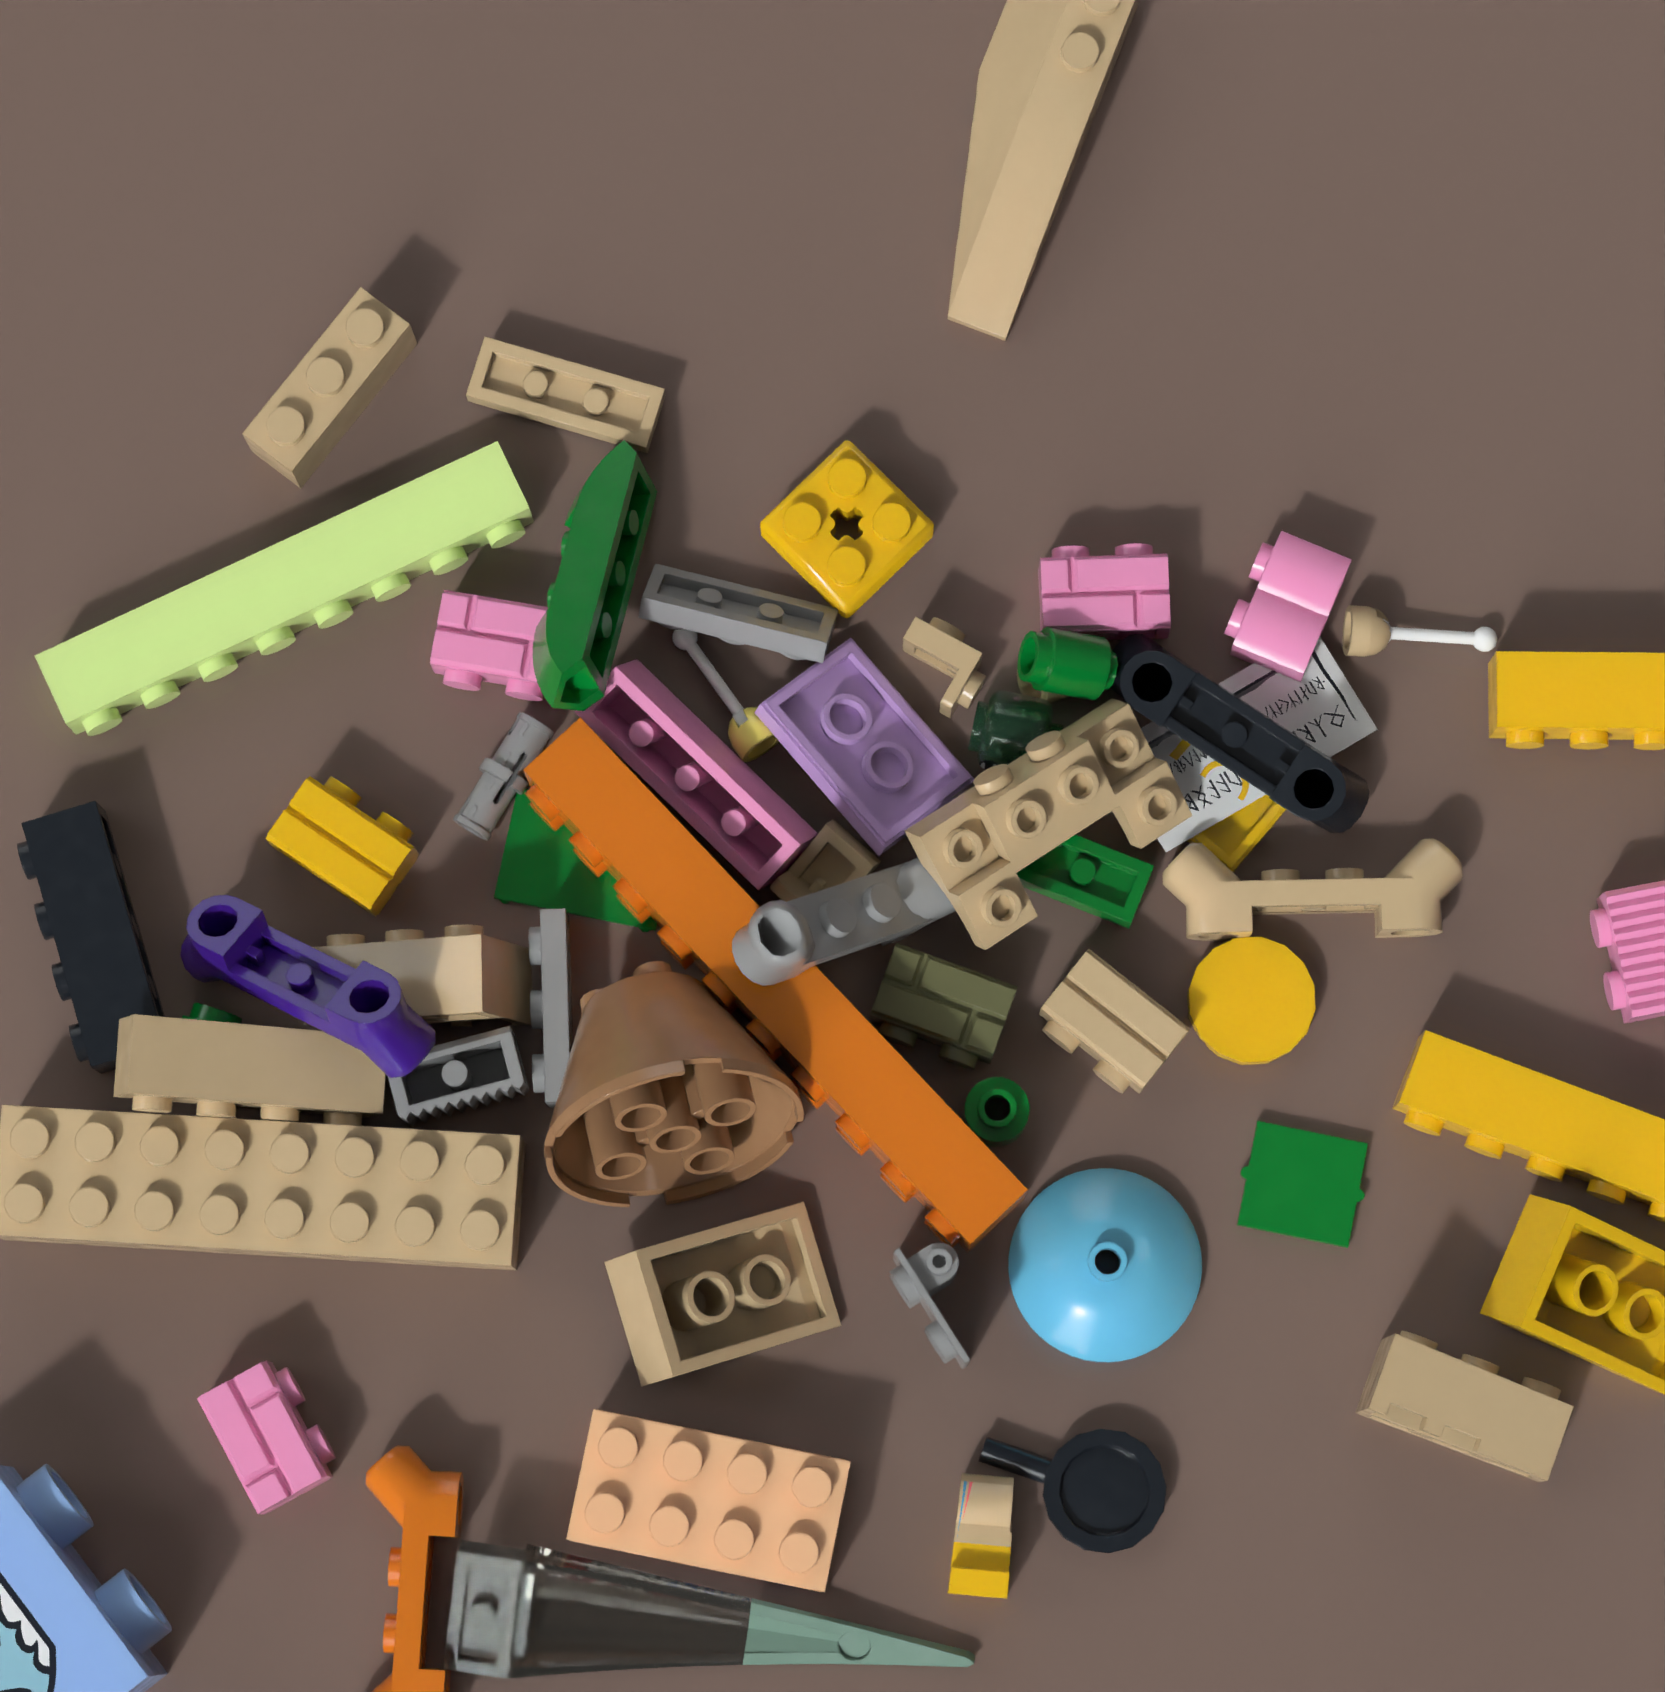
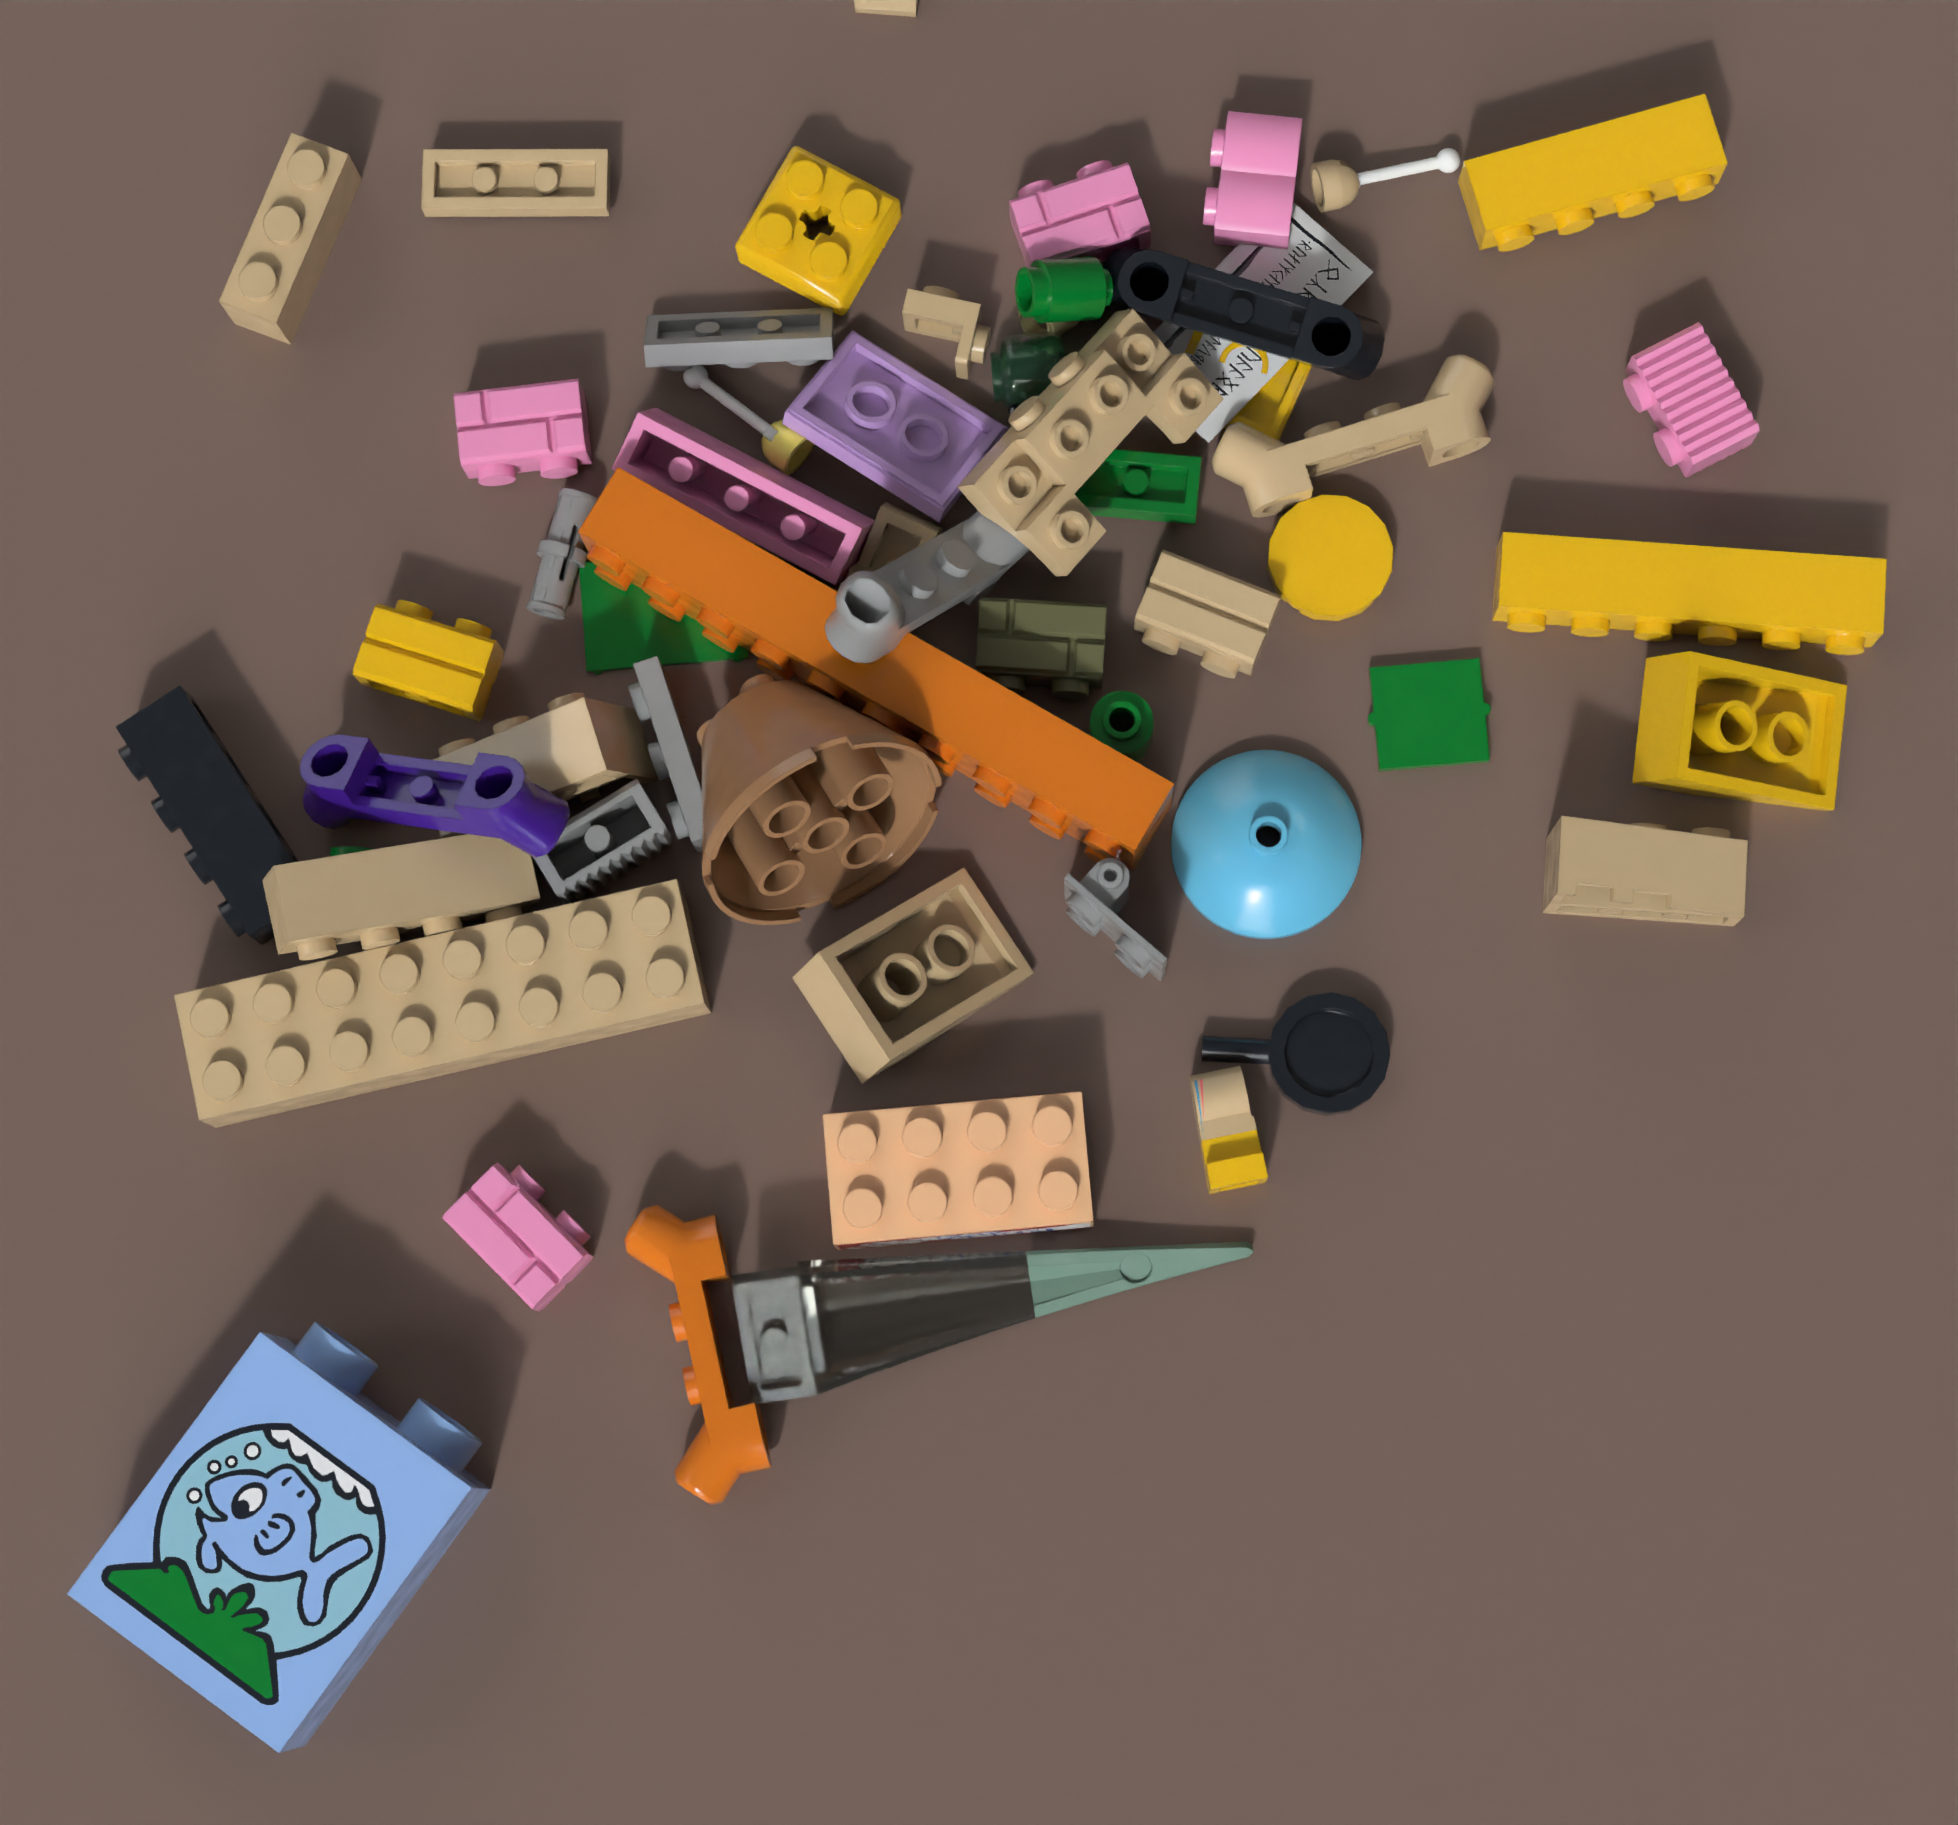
camera: 10 degrees left, 0 degrees up
(285, 590) = (304, 439): yellowish green brick -> none
(594, 581) = (593, 341): green brick -> none

